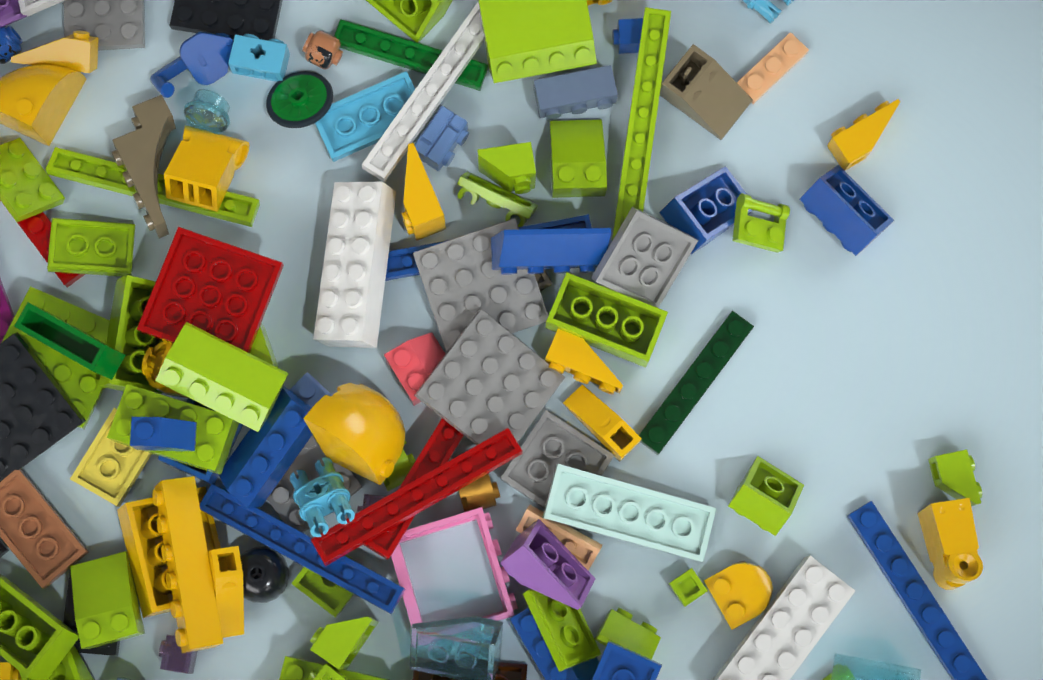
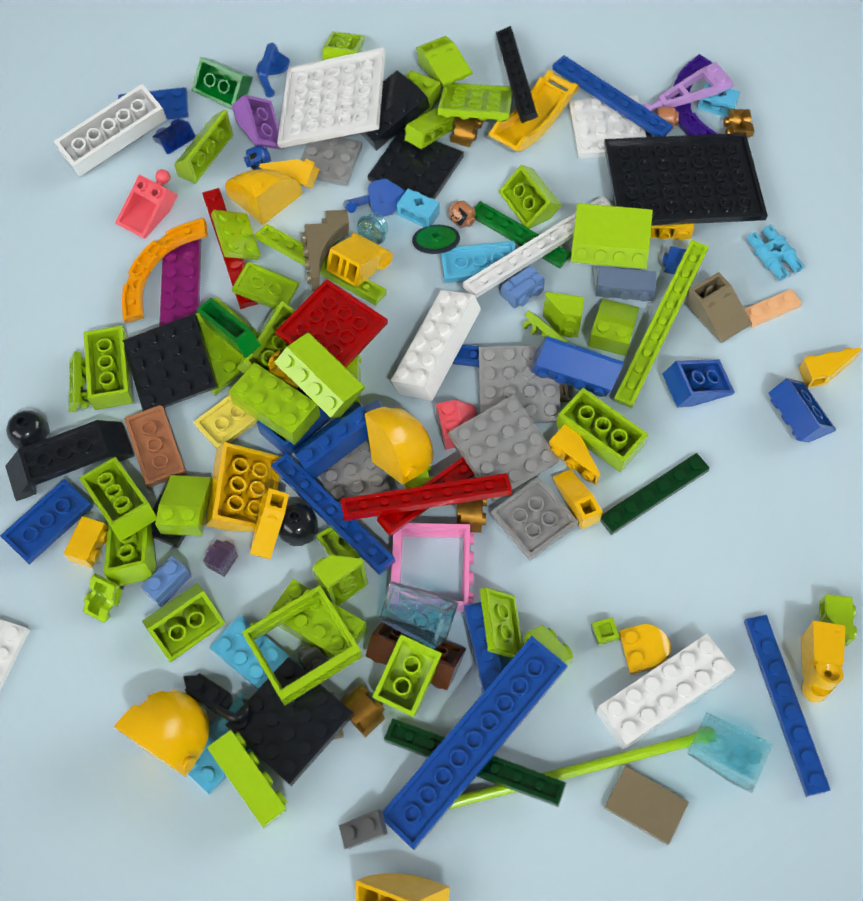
camera: 25 degrees right, 15 degrees down
(162, 434) = (265, 395): blue slope -> none
(187, 564) = (249, 496): yellow brick -> none
(321, 497) = (358, 477): medium azure pin -> none
(422, 210) = (495, 322): yellow slope -> none
(547, 566) = (503, 576): medium lavender slope -> none
(578, 544) = (519, 565): light nougat plate -> none
(629, 513) = (578, 563): light aqua plate -> none
(644, 258) = (642, 392): light grey plate -> none
(757, 231) = (731, 405): lime plate -> none
(766, 496) = (684, 585): lime slope -> none

